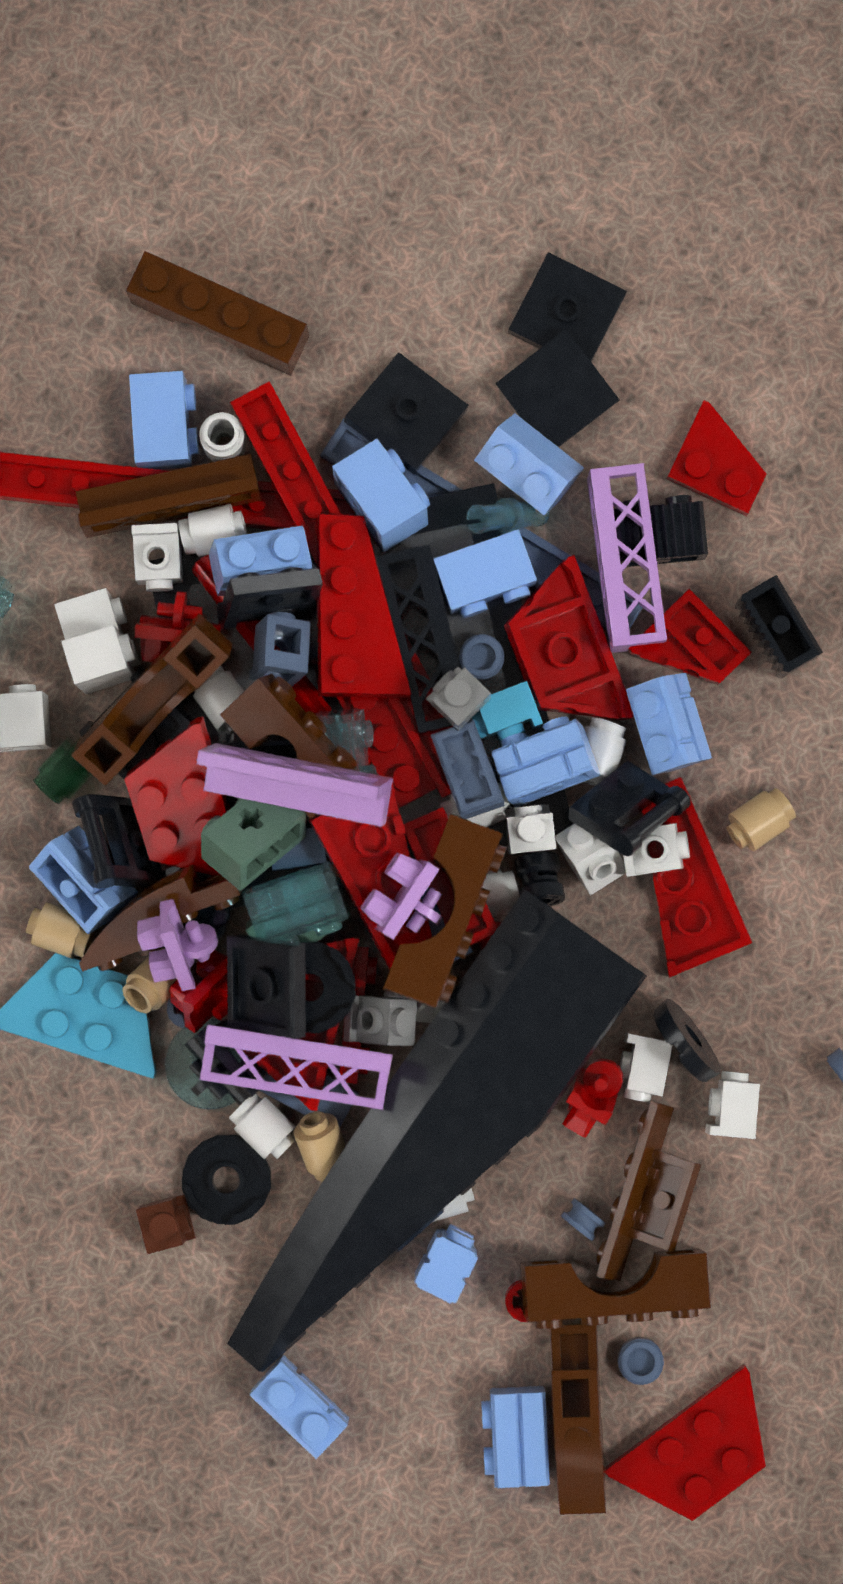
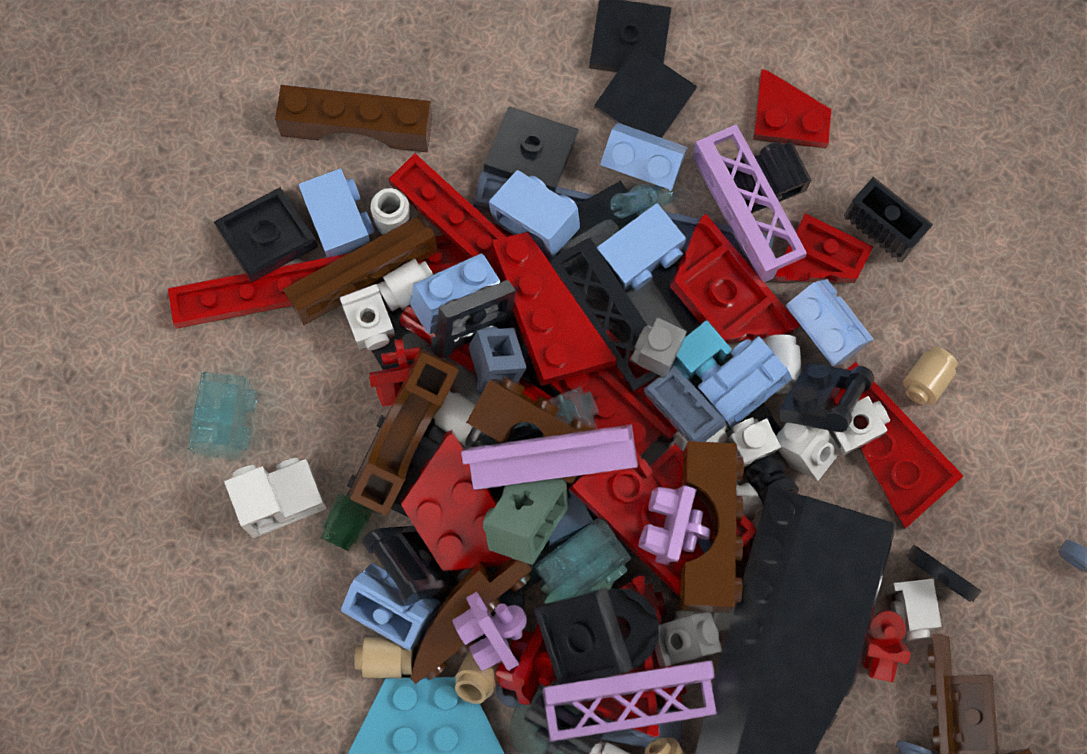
camera: 25 degrees left, 10 degrees down
(77, 418) = (266, 234): none -> black tile
(95, 642) = (338, 405): white brick -> none
(482, 656) = (662, 309): sand blue tile -> none
(734, 1106) = (1001, 617): white brick -> none

